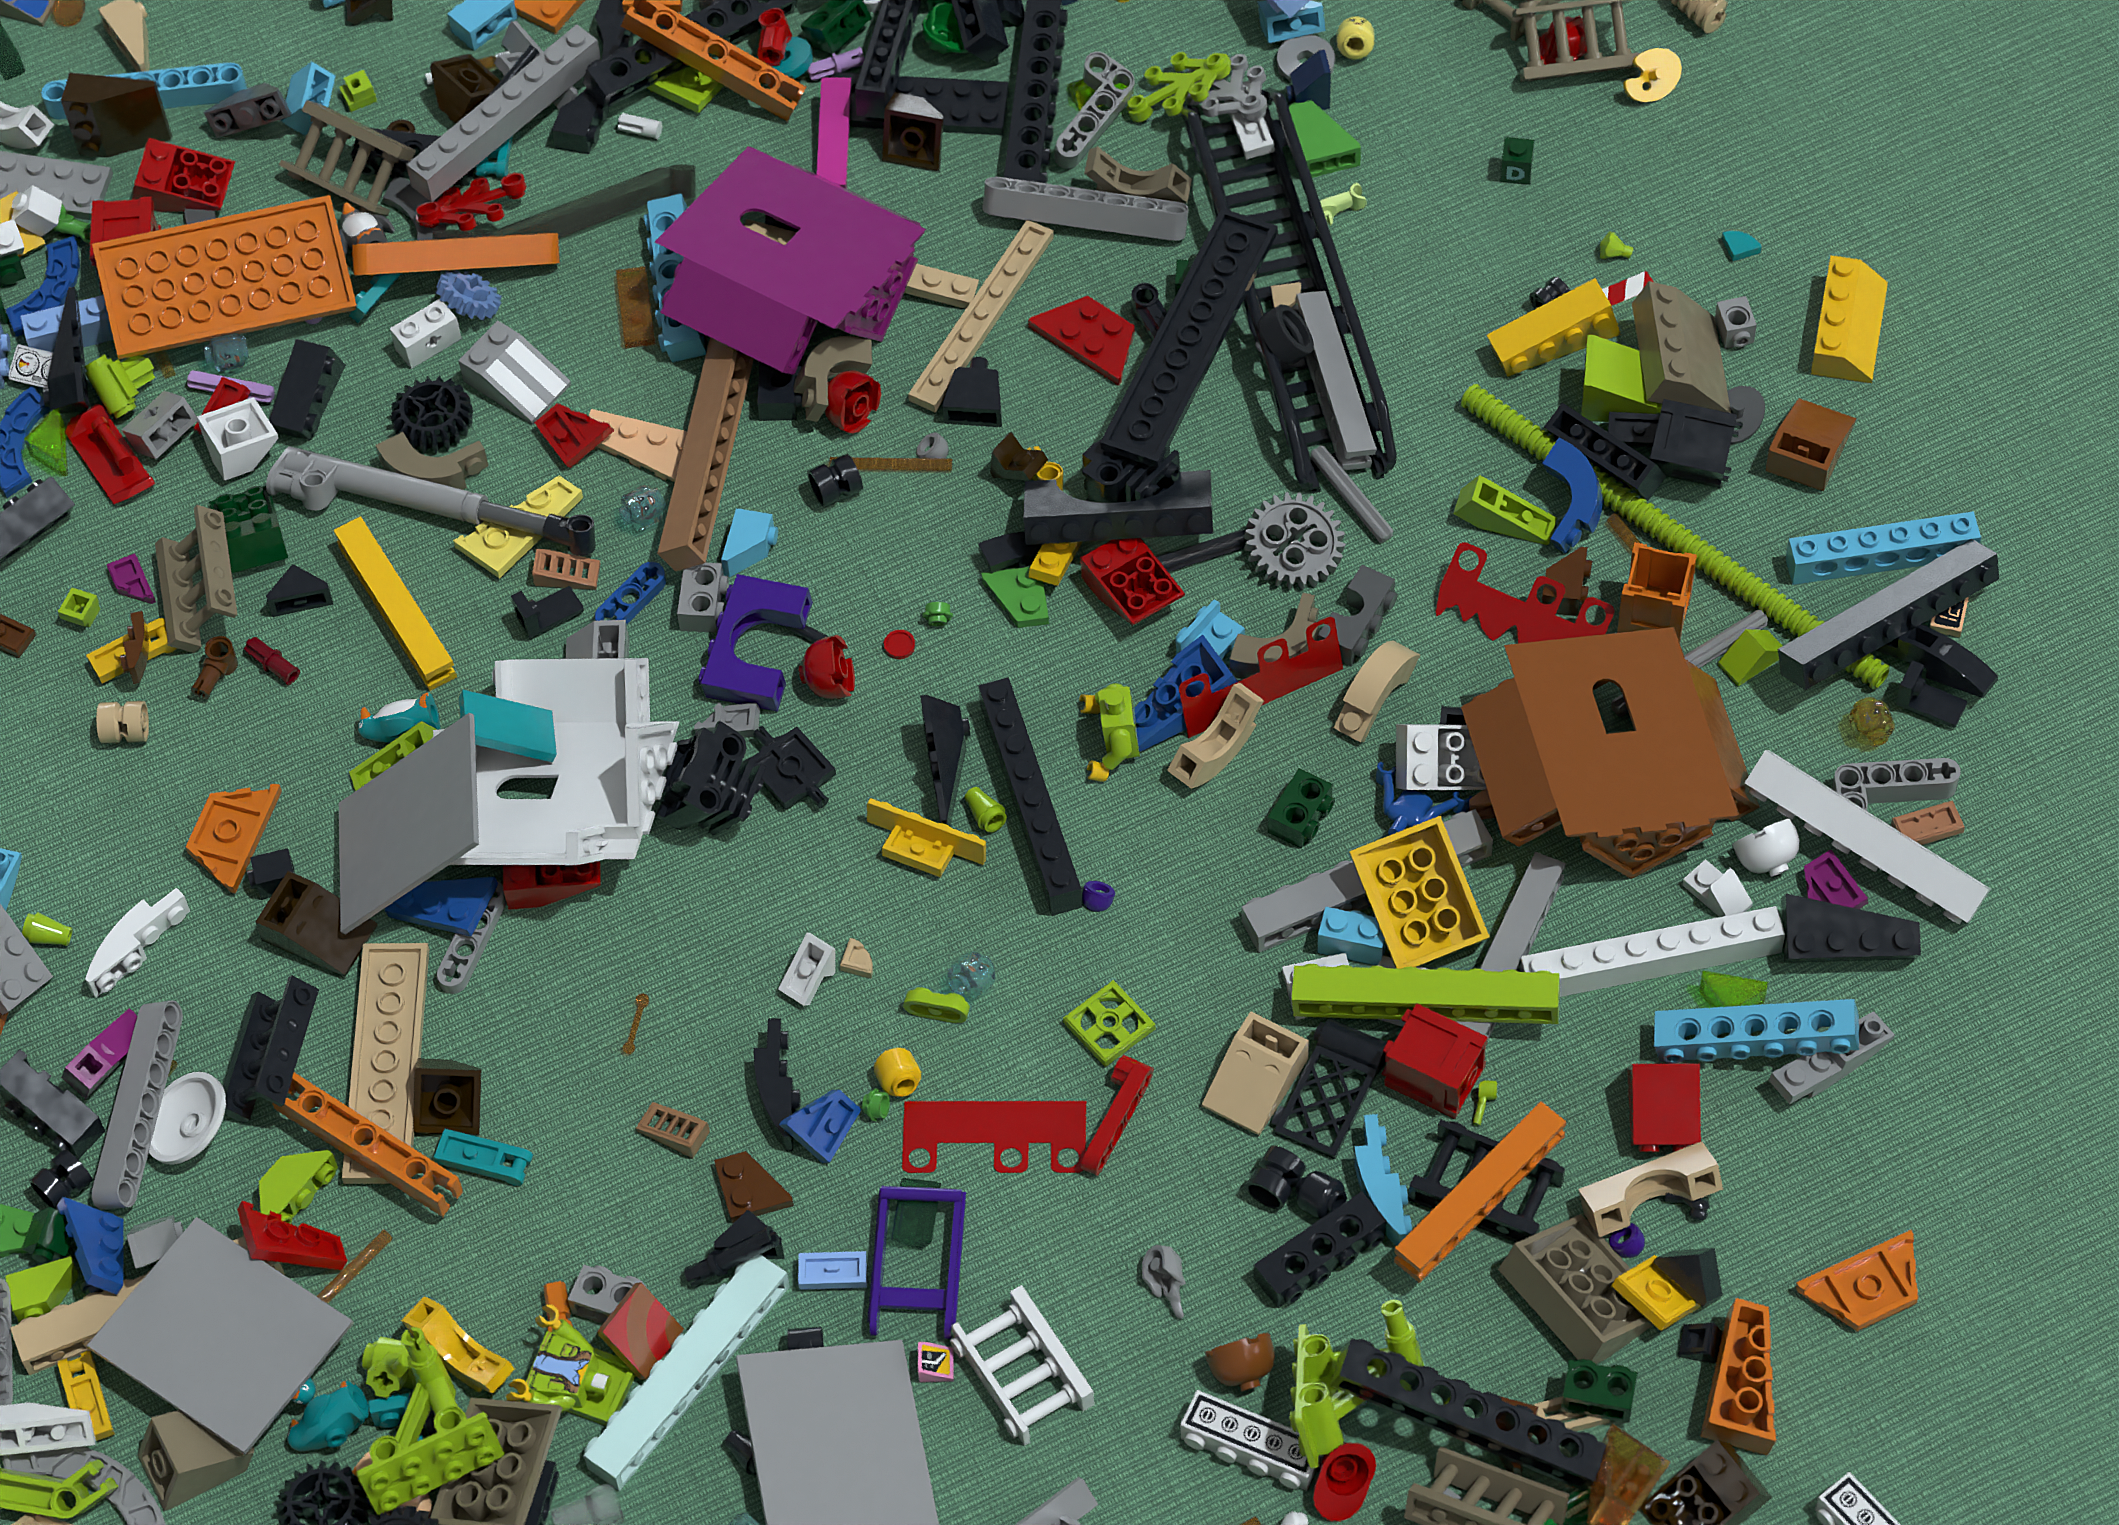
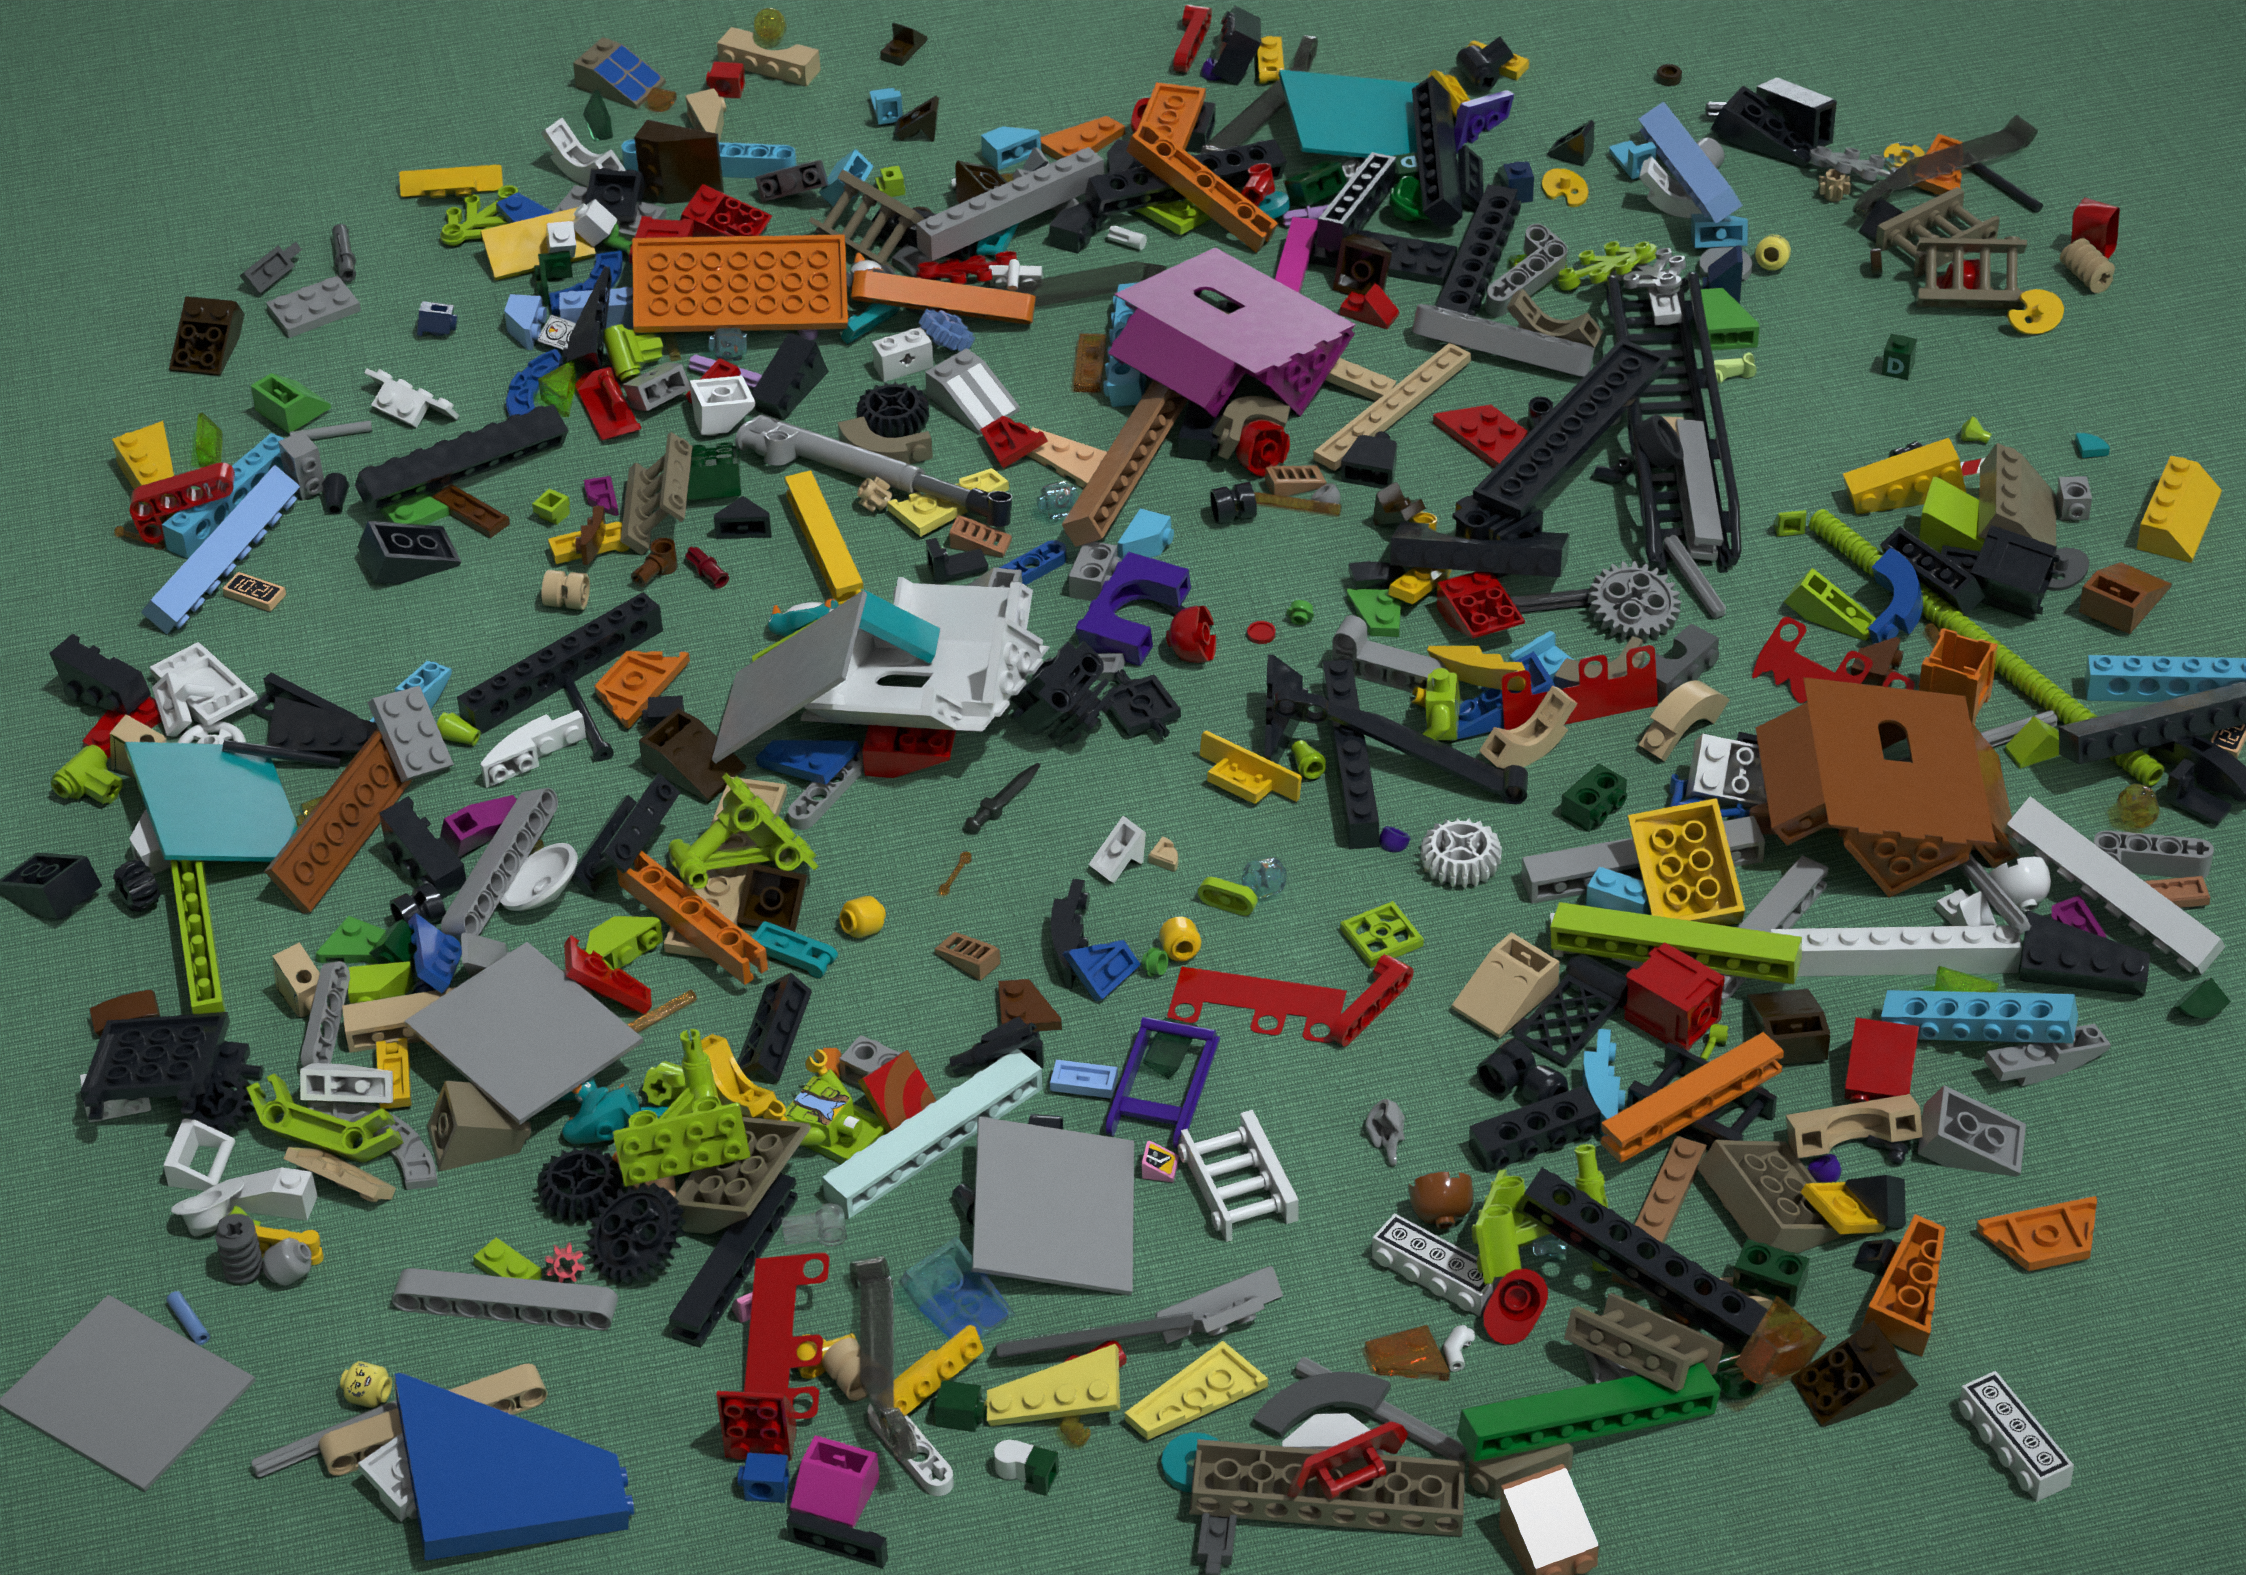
camera: 10 degrees right, 15 degrees down
(51, 164) = (617, 192): none -> black plate
(140, 824) = (566, 658): none -> black brick
(212, 928) = (601, 750): none -> black bar
(404, 1015) = (755, 819): none -> lime plate
(437, 533) = (874, 494): none -> tan gear
(490, 1263) = (774, 1028): none -> black fence
(527, 203) = (1014, 274): none -> white plate
(549, 1103) = (862, 916): none -> yellow head
(657, 931) = (993, 807): none -> pearl dark grey sword
(888, 445) = (1288, 481): none -> medium nougat slope
(931, 183) = (1372, 308): none -> red slope
(1041, 667) = (1378, 661): none -> light grey beam
(1140, 662) = (1476, 667): none -> yellow slope
(1171, 894) = (1461, 847): none -> white gear
(1204, 805) = (1509, 783): none -> black piece
(1241, 367) = (1617, 473): none -> black arm
(1440, 406) = (1790, 523): none -> lime slope
(1468, 31) = (1876, 261): none -> dark brown tile
(1471, 1308) = (1669, 1191): none -> medium nougat plate
(1560, 1066) = (1793, 1023): none -> dark brown slope
(1749, 876) = (1995, 895): none -> light grey axle
(1771, 1175) = (1970, 1135): none -> light grey slope
(1977, 960) = (2203, 1000): none -> dark green brick

